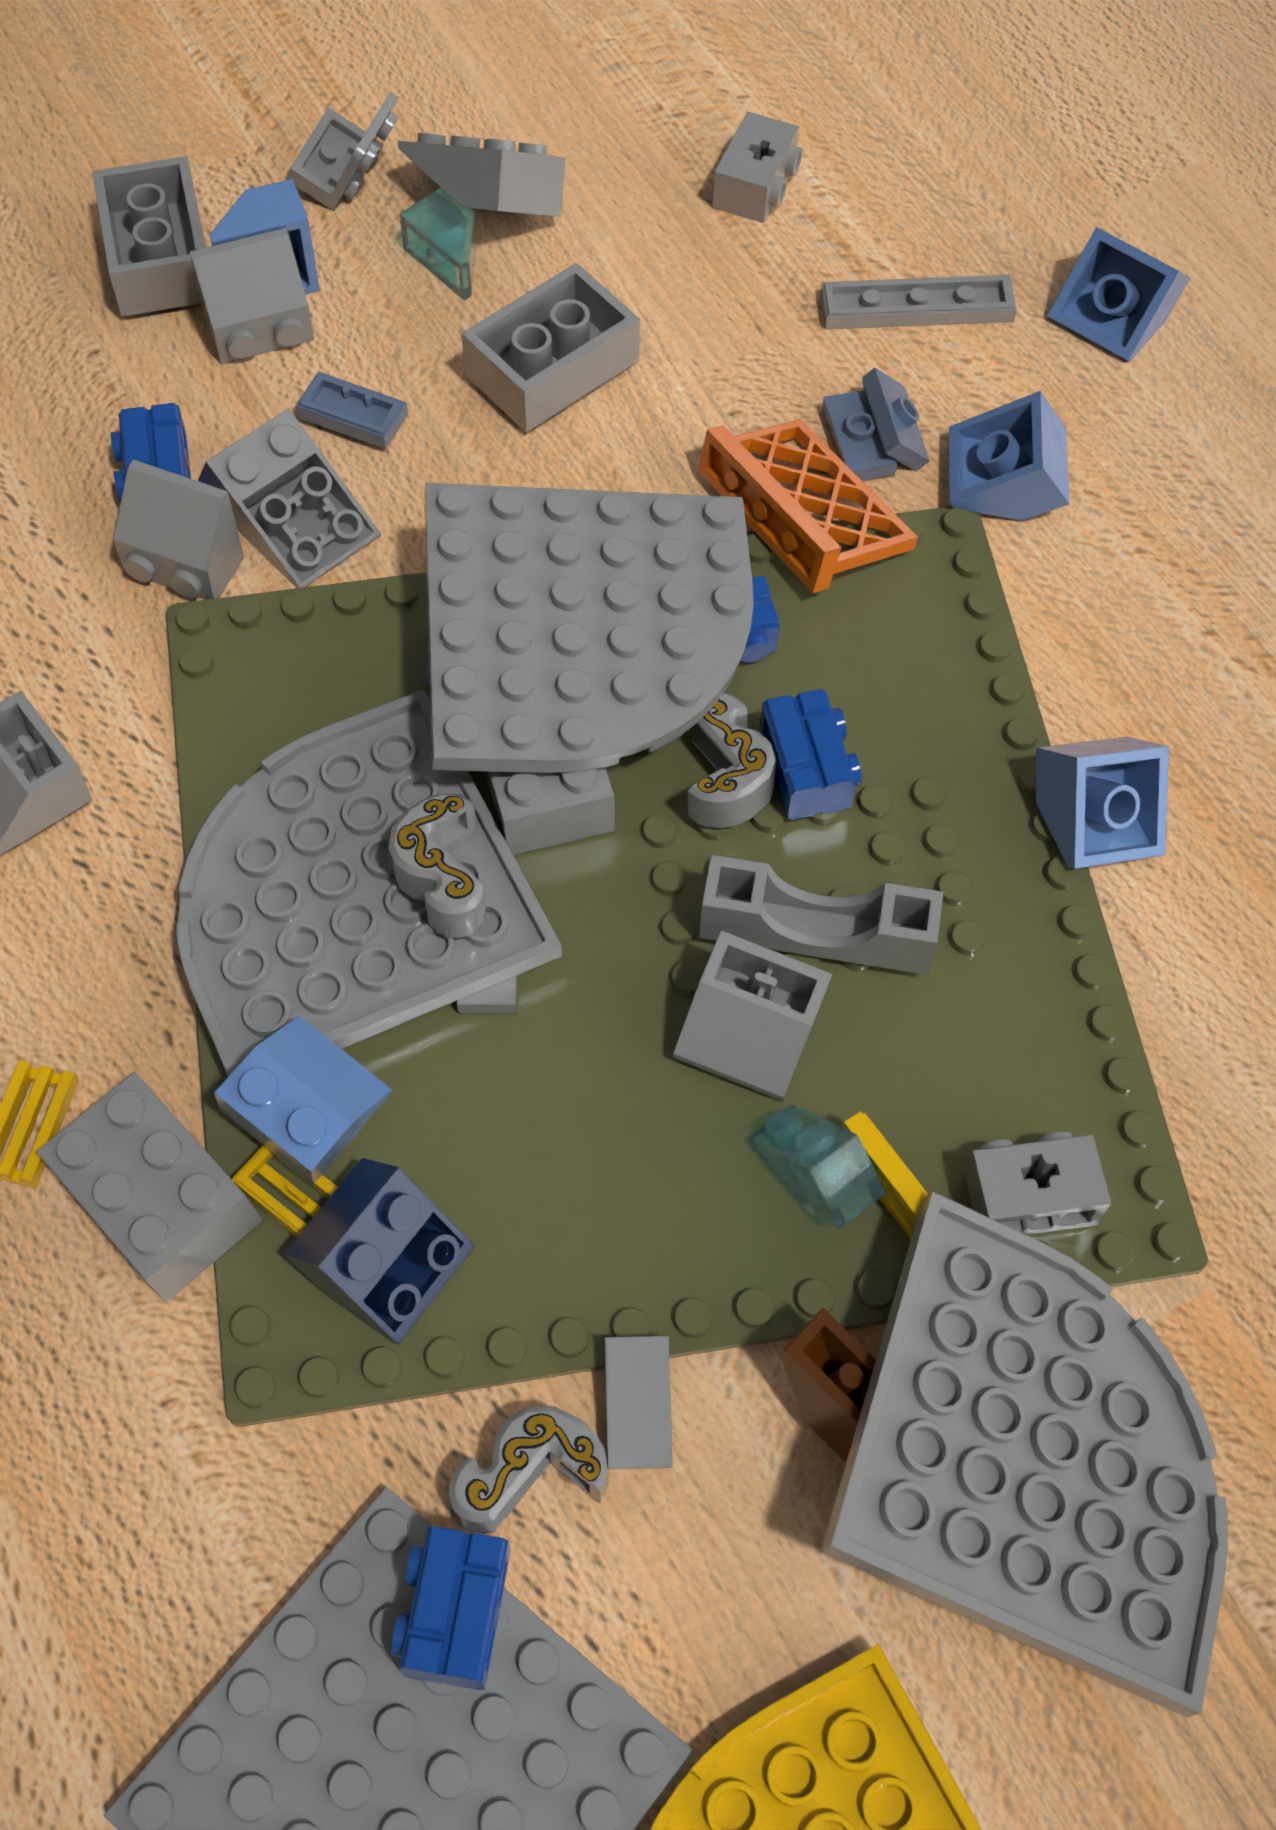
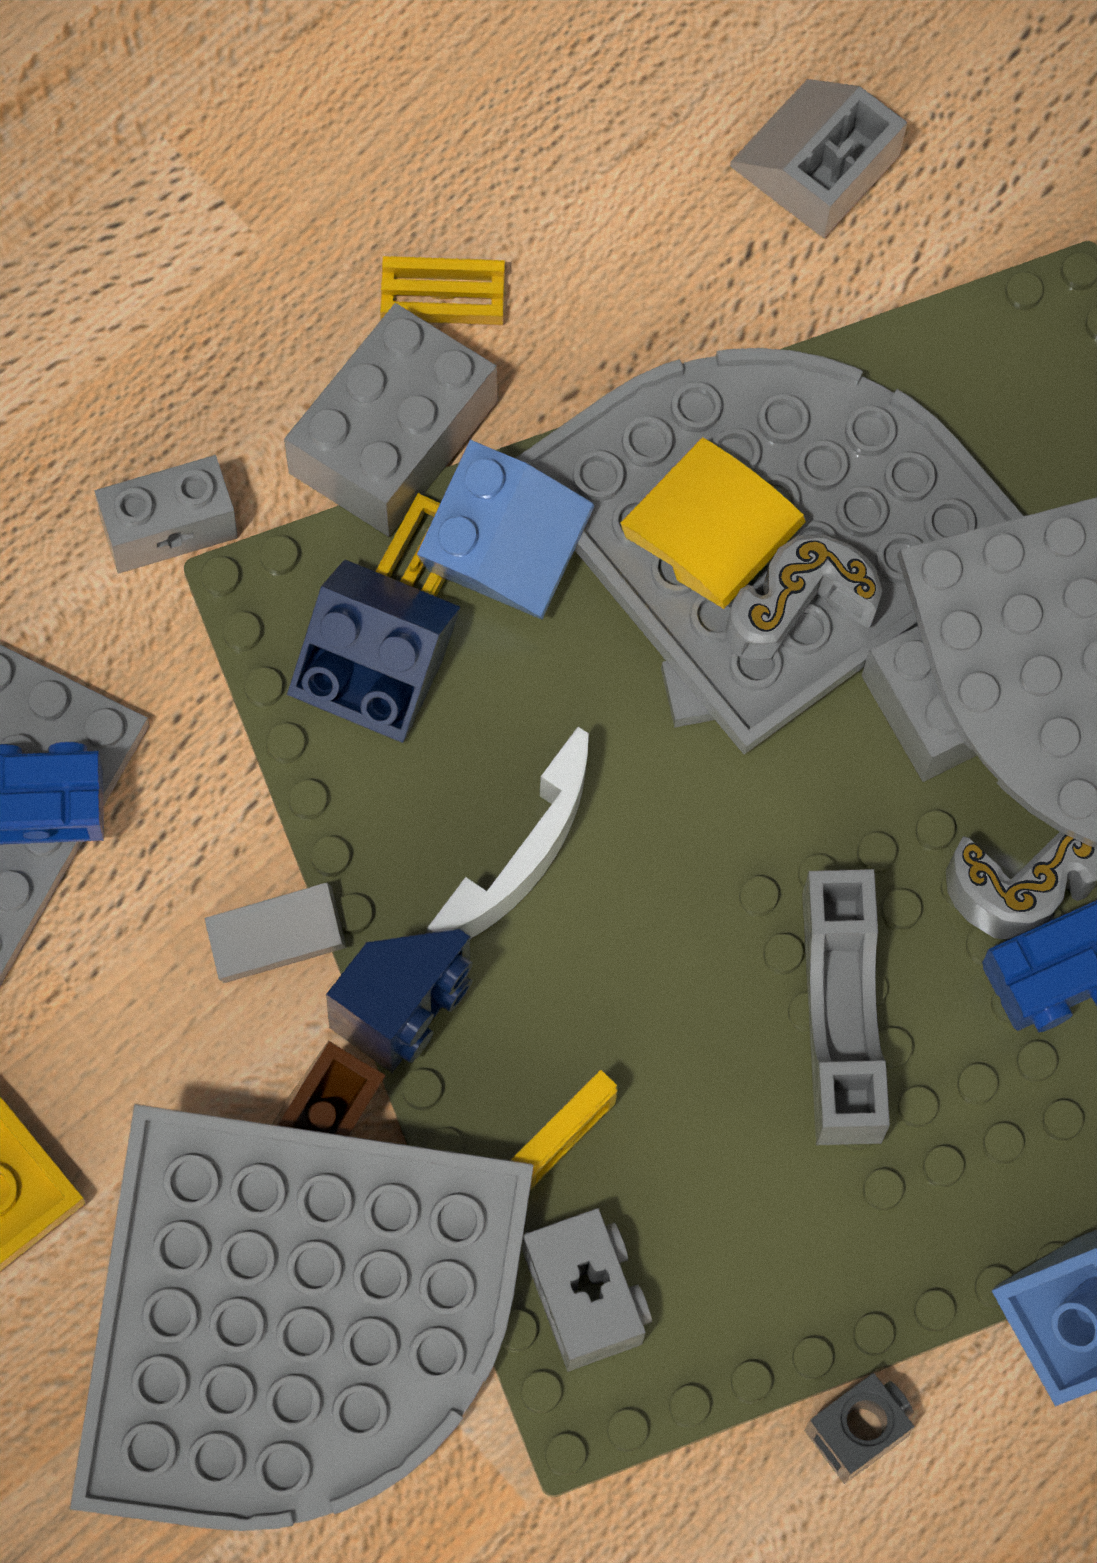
camera: 75 degrees right, 10 degrees up
(178, 1423) = (166, 514): none -> light grey brick
(347, 921) = (713, 522): none -> yellow slope
(519, 1457) = (194, 830): light grey animal -> none
(559, 1104) = (561, 785): none -> white slope
(747, 1284) = (397, 991): none -> dark blue slope
(751, 1015) = (709, 959): light grey slope -> none
(818, 1164) = (557, 1058): clear light blue slope -> none
(1173, 1016) = (840, 1447): none -> dark grey brick

